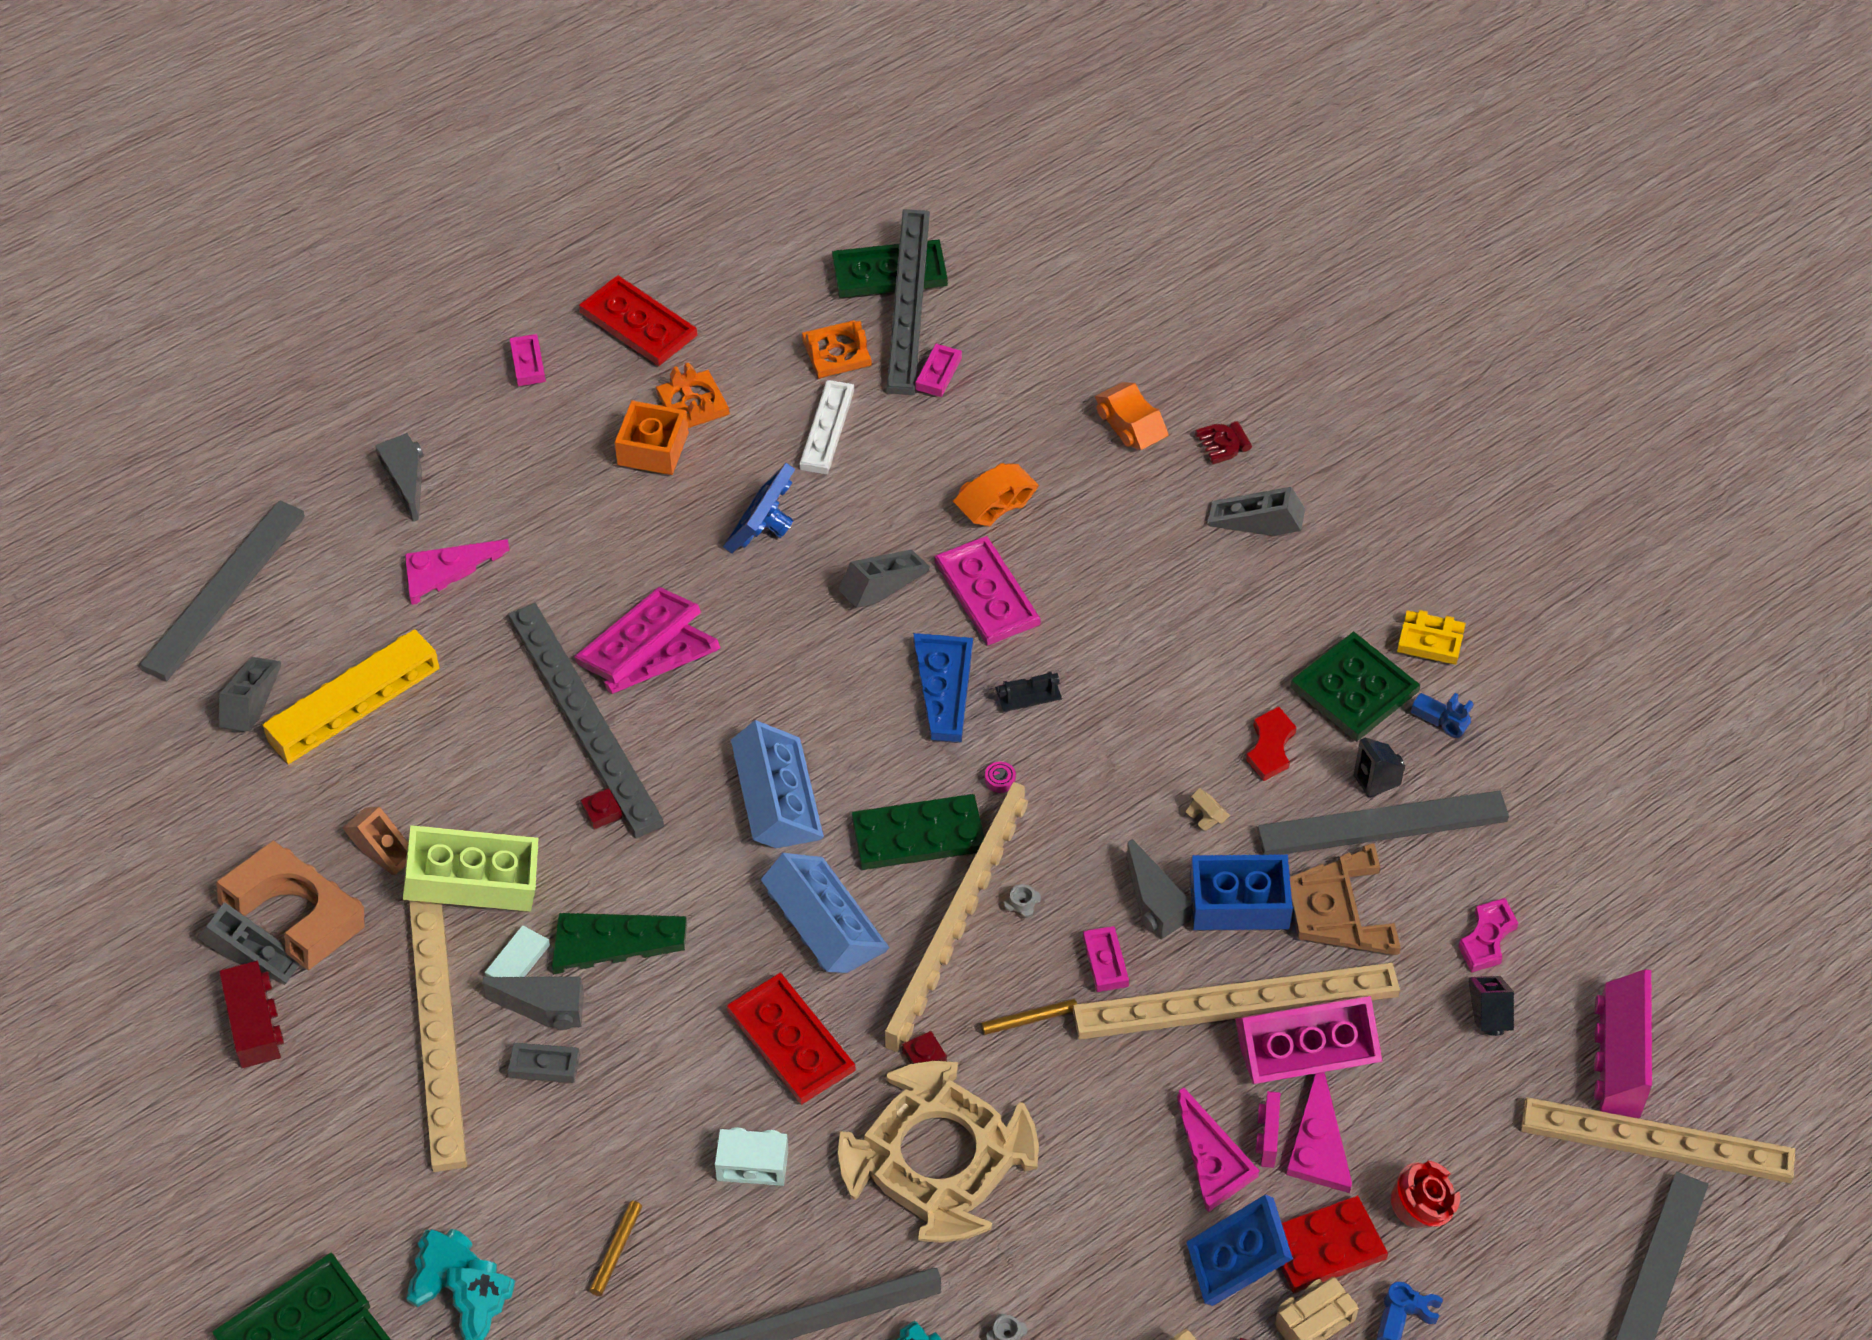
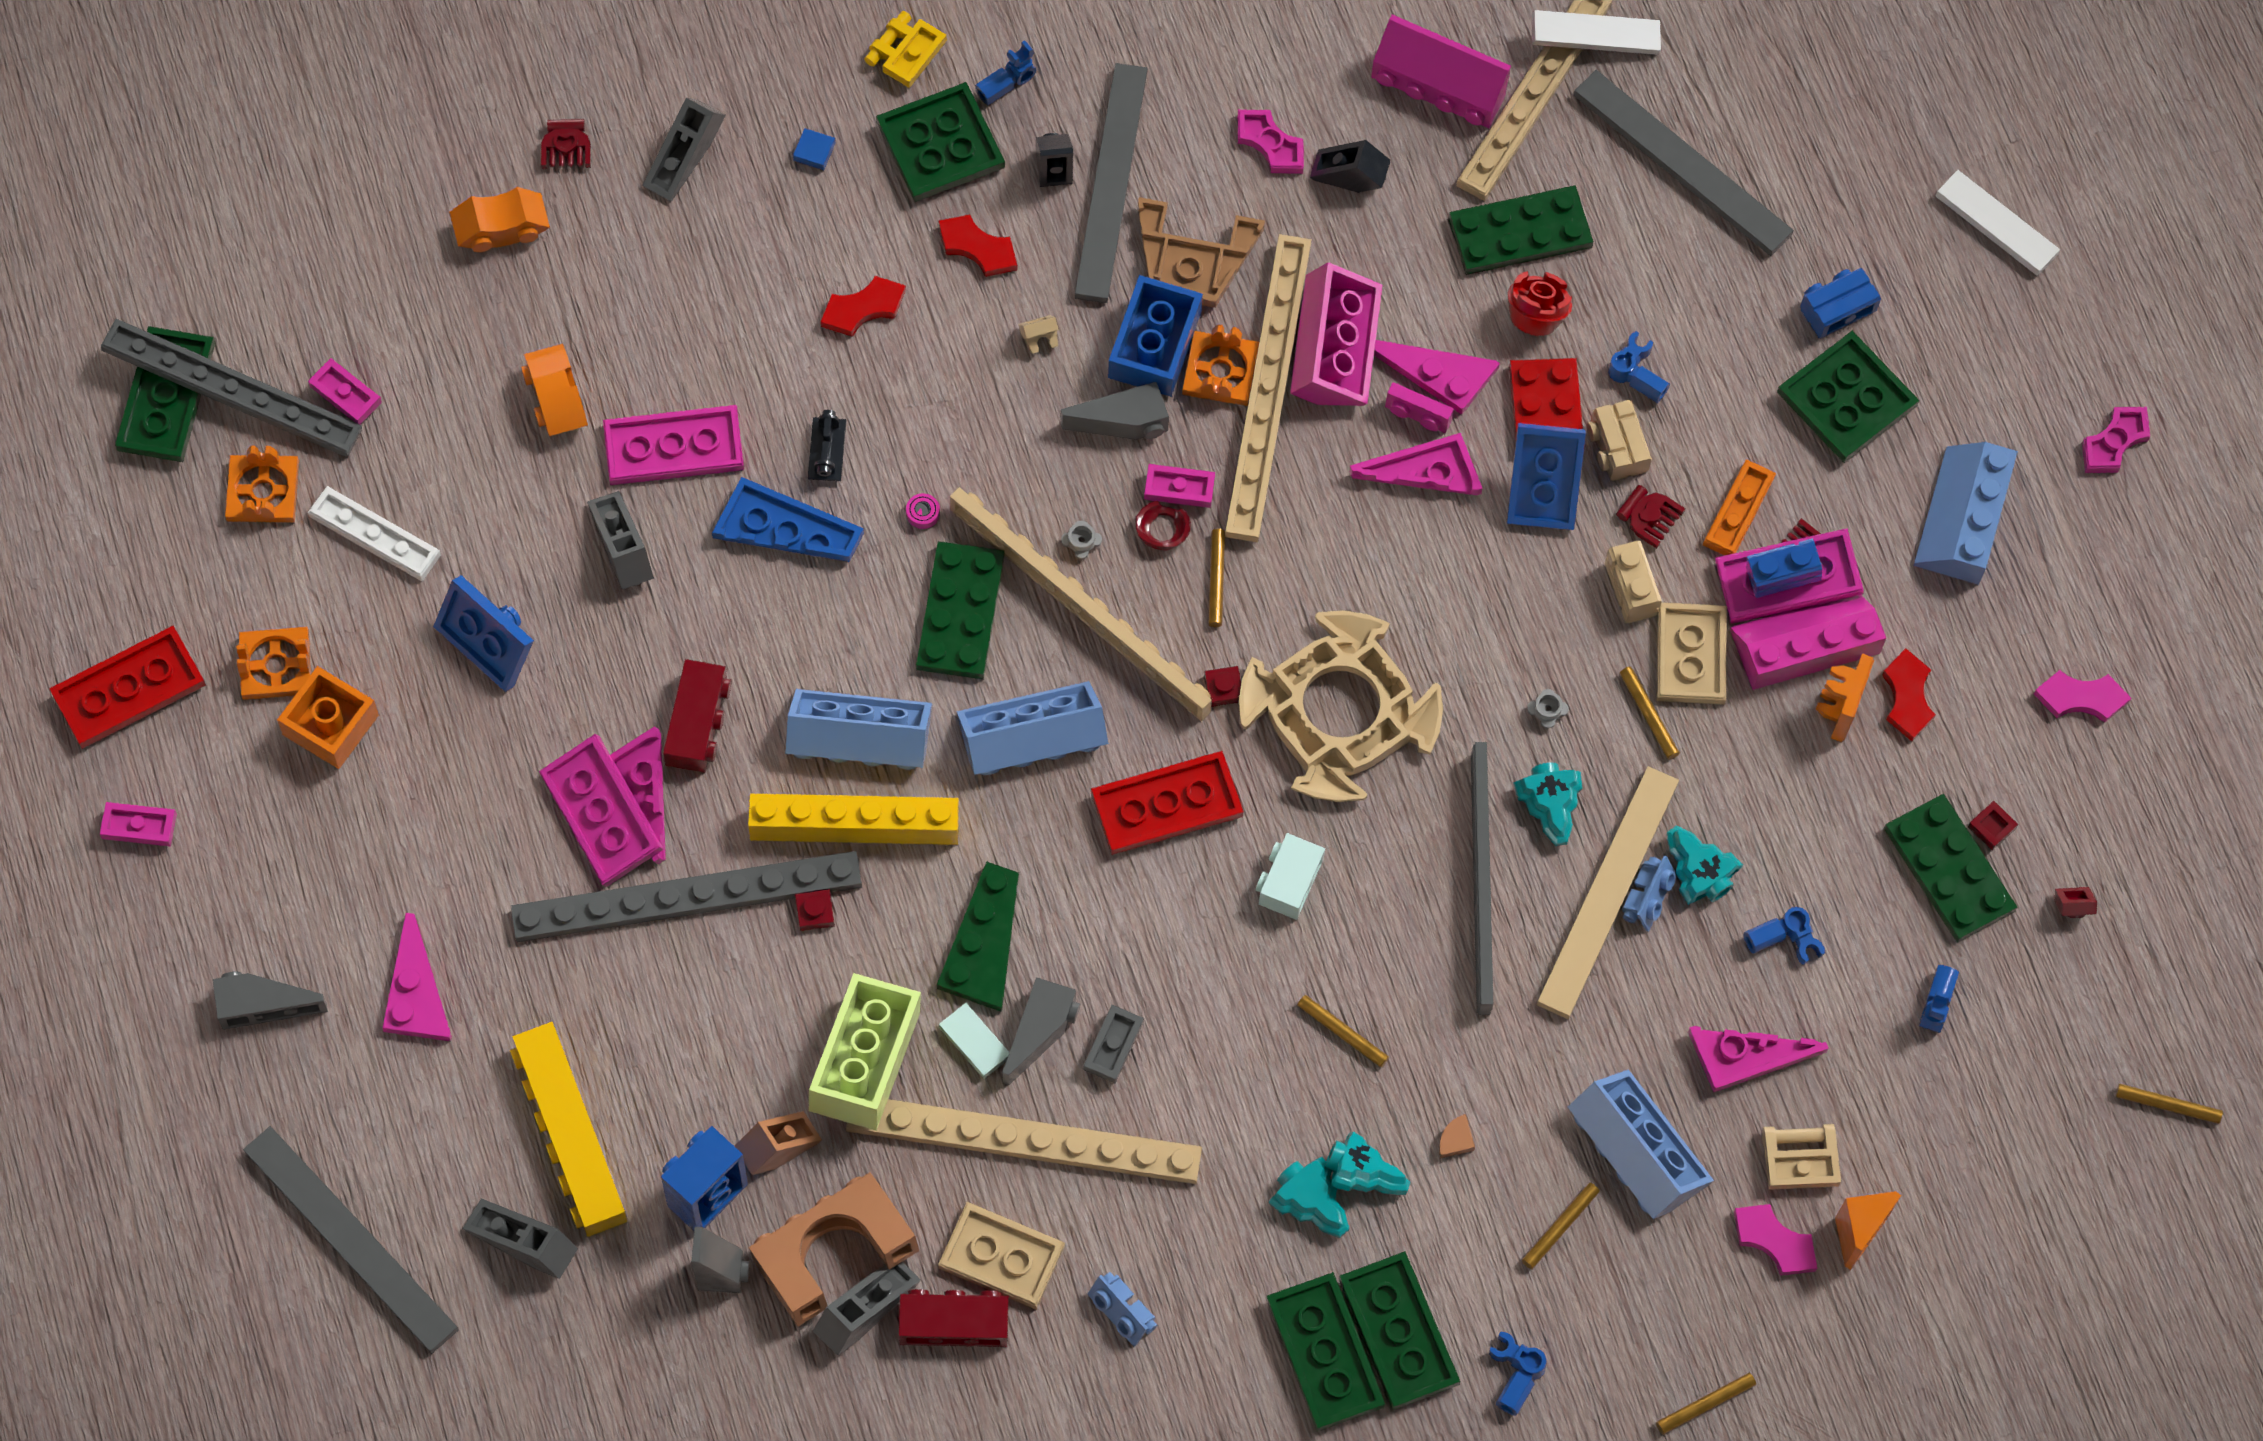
camera: 75 degrees left, 15 degrees up
(248, 812) = (717, 1263): none -> dark grey slope
(287, 1153) = (1131, 1321): none -> medium blue hinge
(317, 784) = (704, 1178): none -> blue brick
(323, 1037) = (1001, 1255): none -> tan tile
(689, 808) = (853, 819): none -> yellow brick
(744, 671) = (696, 716): none -> dark red brick
(1060, 944) = (1150, 513): none -> dark red piece
(1163, 671) = (875, 301): none -> red tile
(1258, 936) = (1220, 388): none -> orange piece
(1304, 603) = (814, 149): none -> blue tile
(1504, 1169) = (1520, 230): none -> dark green plate
(1747, 1170) = (1596, 32): none -> white tile

